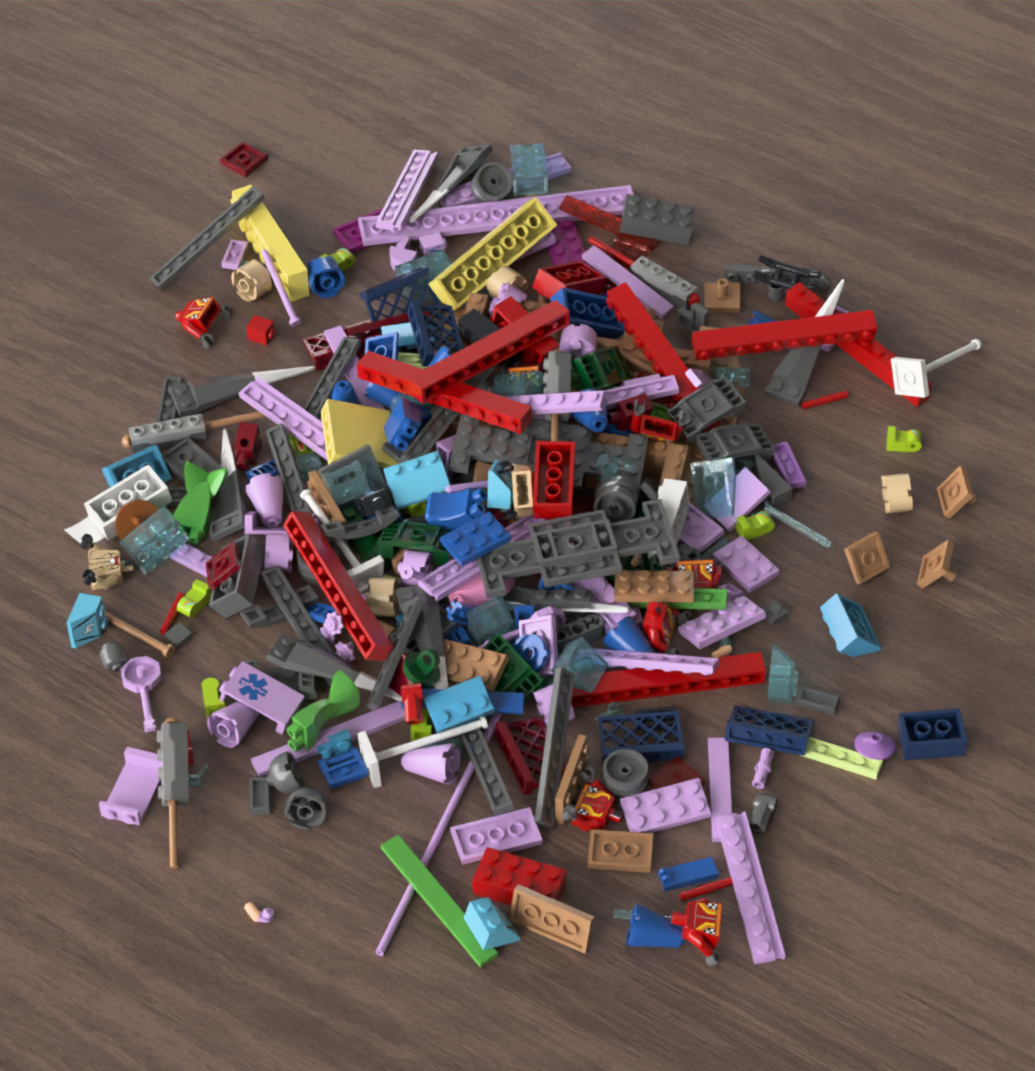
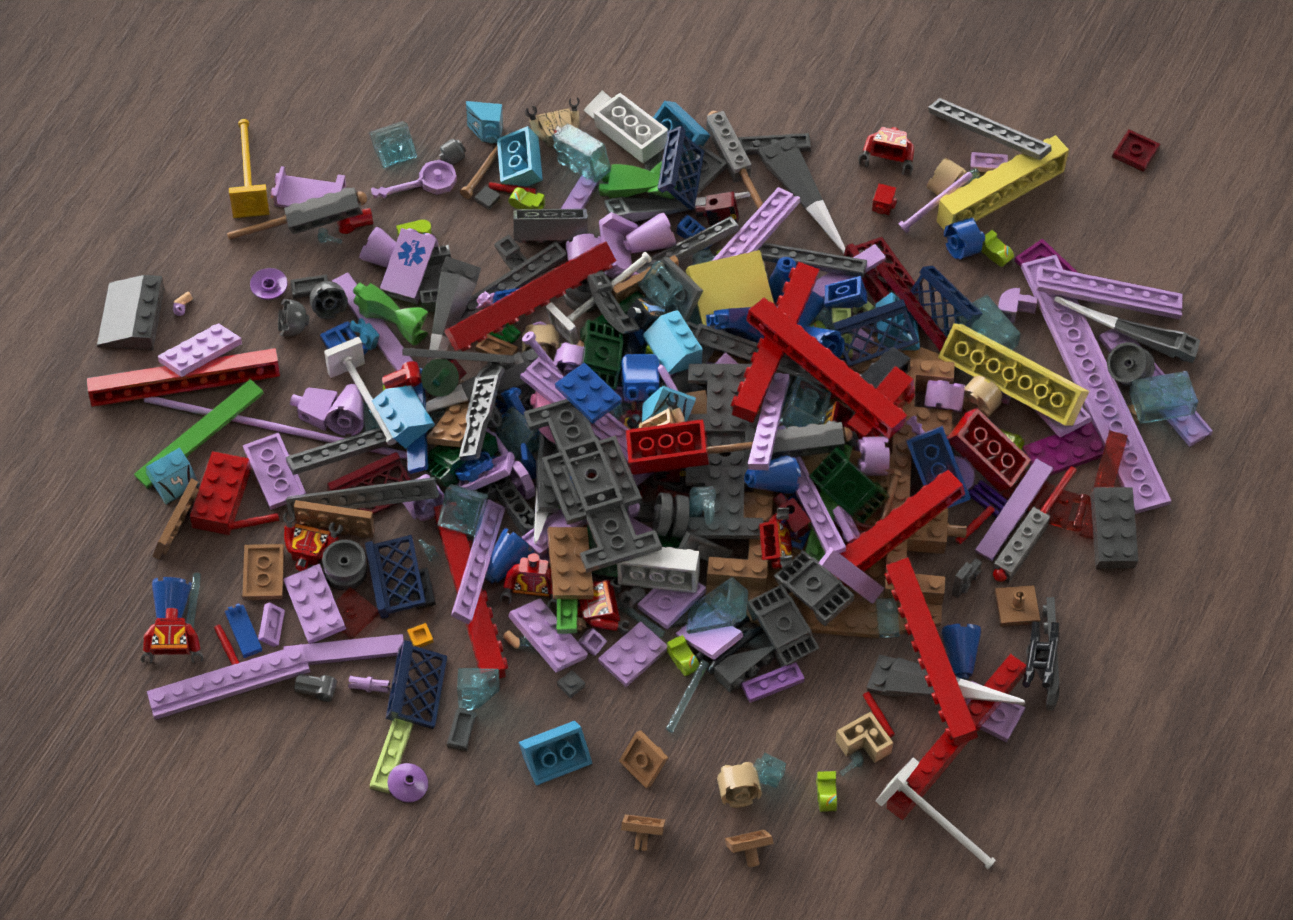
camera: 80 degrees right, 10 degrees up
(87, 707) = (393, 144): none -> clear light blue slope
(132, 516) = (611, 135): dark orange shield -> none
(139, 598) = (519, 158): none -> medium azure slope
(139, 837) = (249, 199): none -> yellow tile
(194, 459) = (672, 165): none -> dark blue fence
(223, 565) = (555, 208): dark red tile -> none
(249, 822) = (266, 278): none -> medium lavender dish
(263, 959) = (132, 313): none -> slope
(333, 890) = (199, 350): none -> lavender plate
(363, 912) = (163, 381): none -> red brick
(422, 794) = (314, 406): none -> lavender torso
(432, 243) = (1035, 328): lavender brick -> none
(470, 632) = (481, 411): none -> dark grey piece
(553, 857) = (255, 521): none -> red piece
(694, 848) = (271, 624): none -> lavender plate
(711, 723) = (420, 636): none -> light orange plate
(852, 404) = (865, 734): none -> tan brick
(870, 417) = (858, 761): none -> clear light blue hand
(874, 474) = (770, 770): none -> clear light blue brick
(932, 734) = (417, 829): dark blue brick -> none

